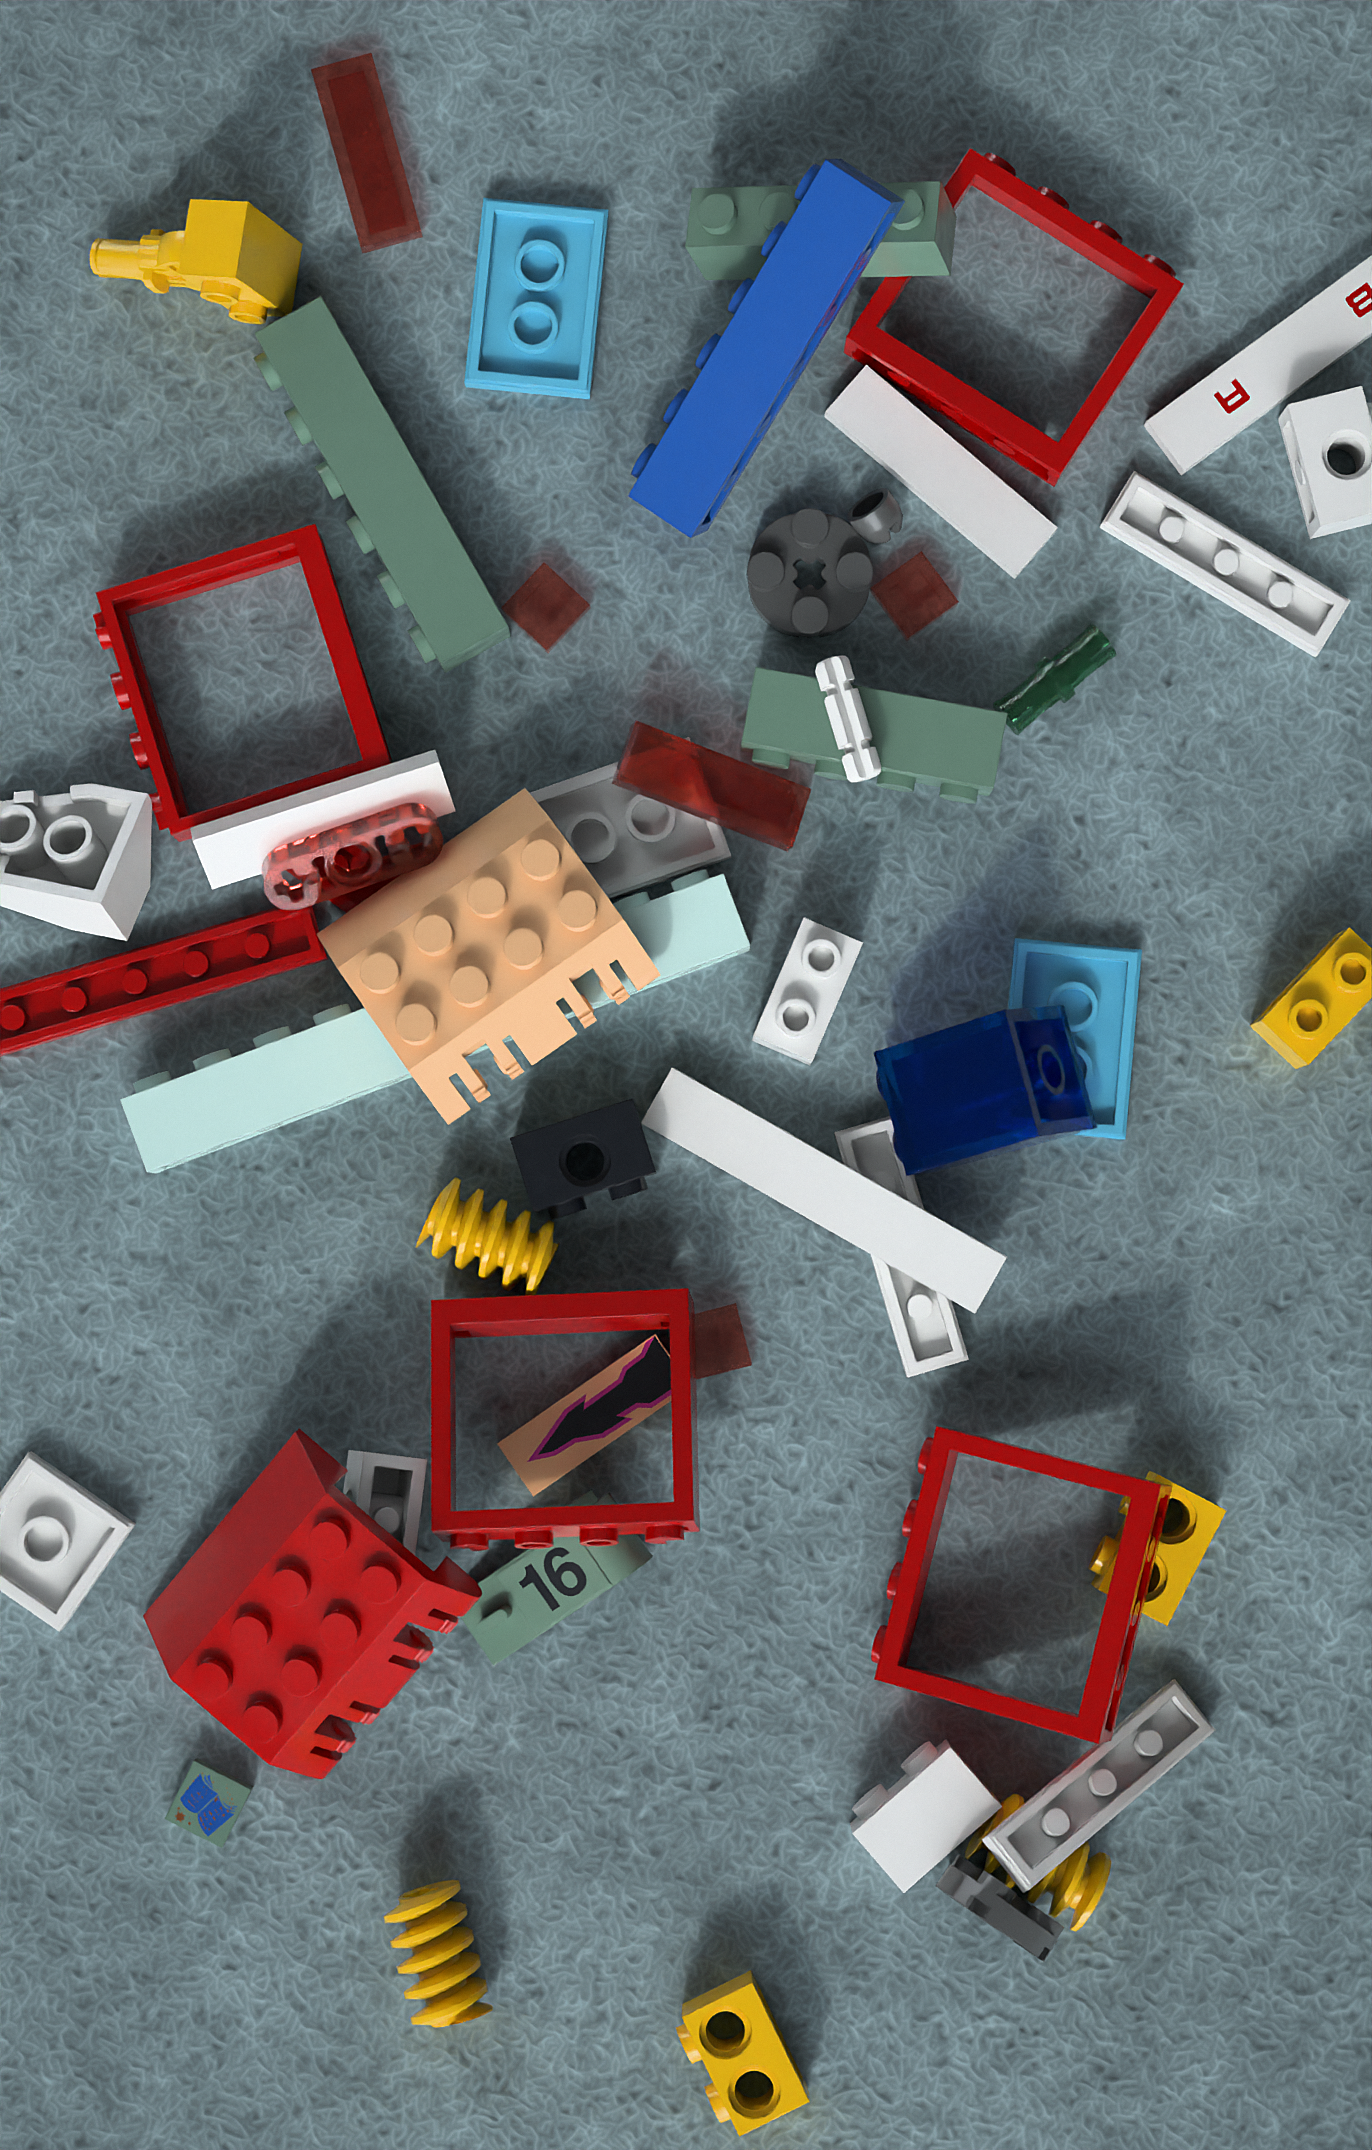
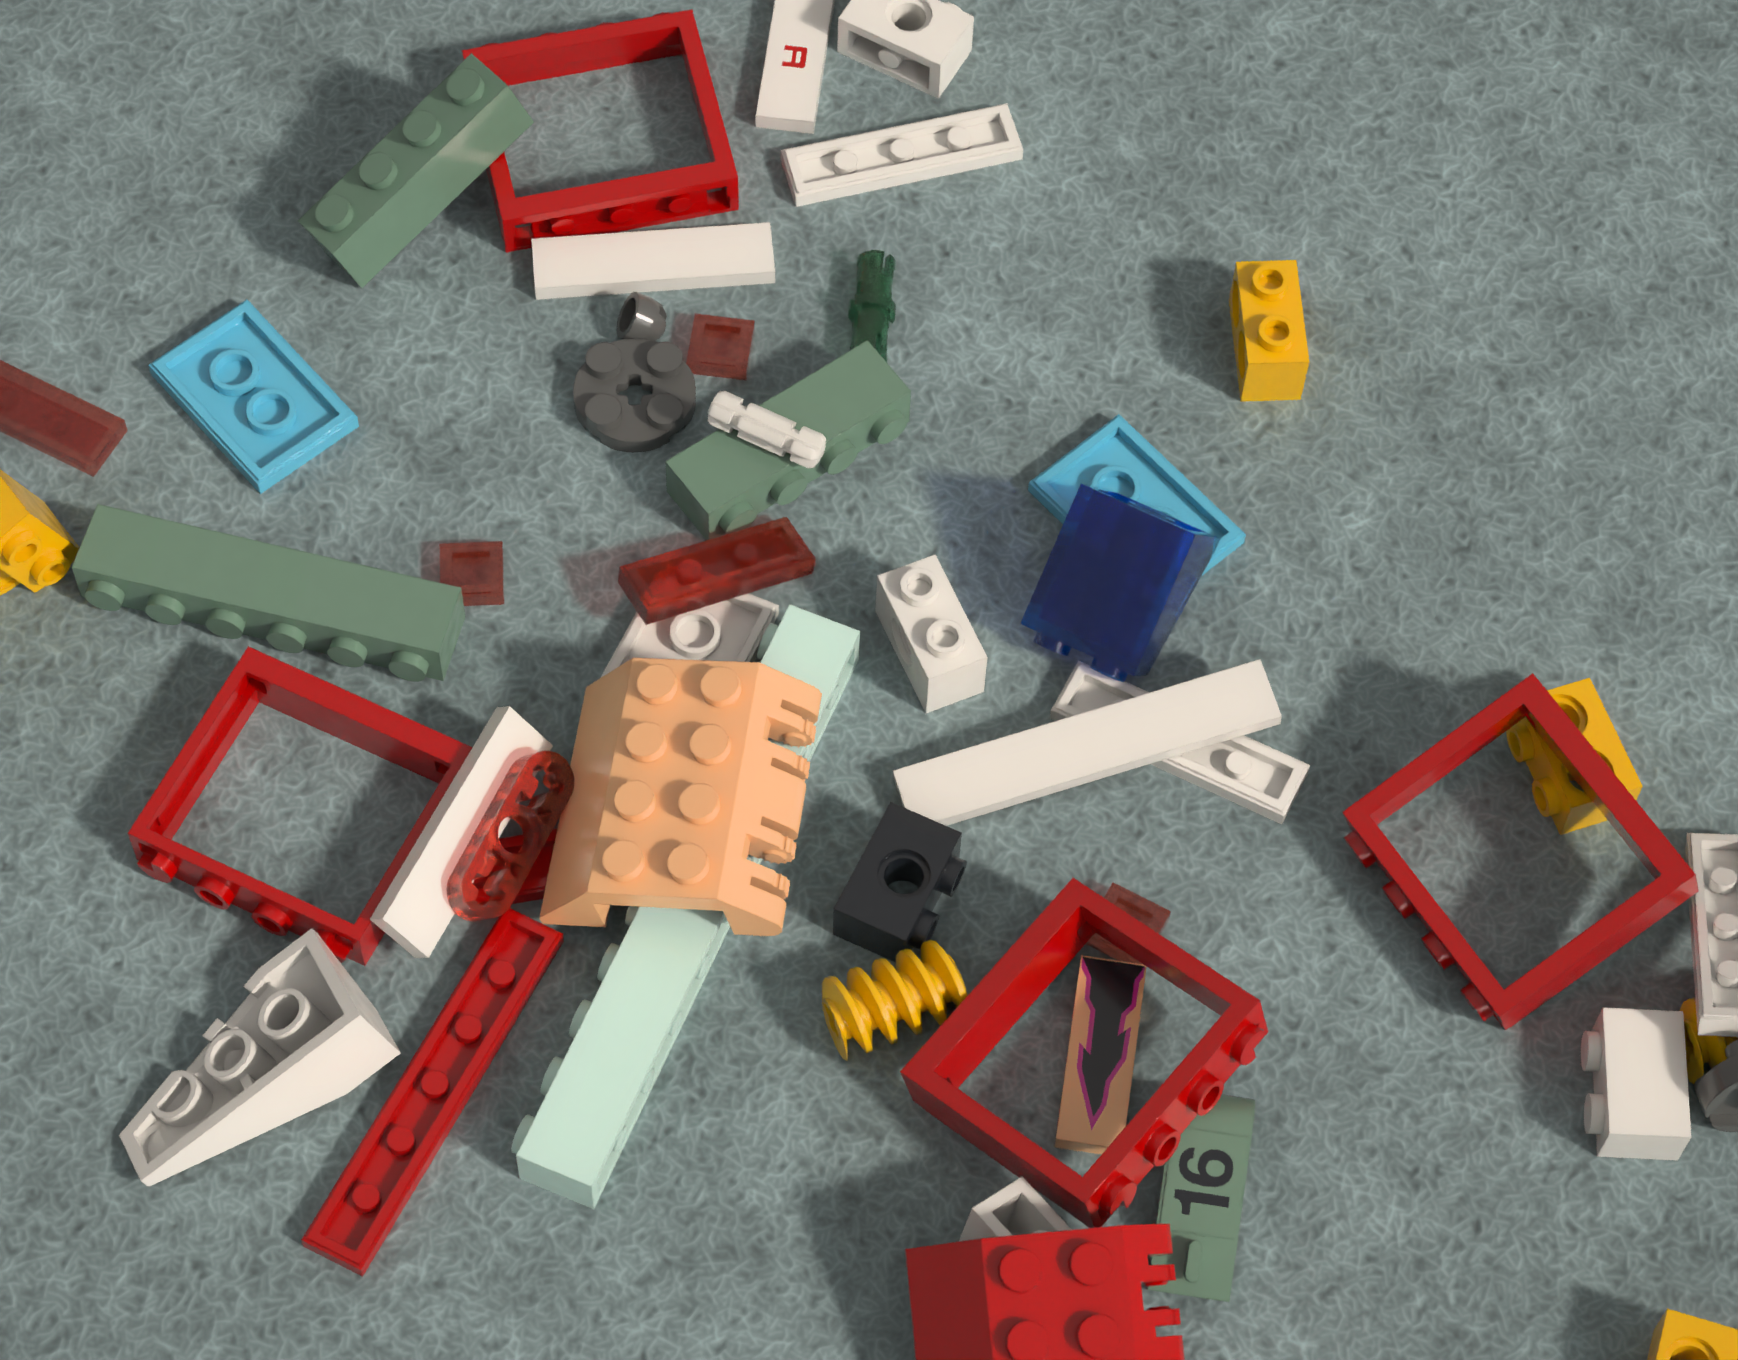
camera: 50 degrees left, 25 degrees down
(765, 345) = (457, 256): blue brick -> none

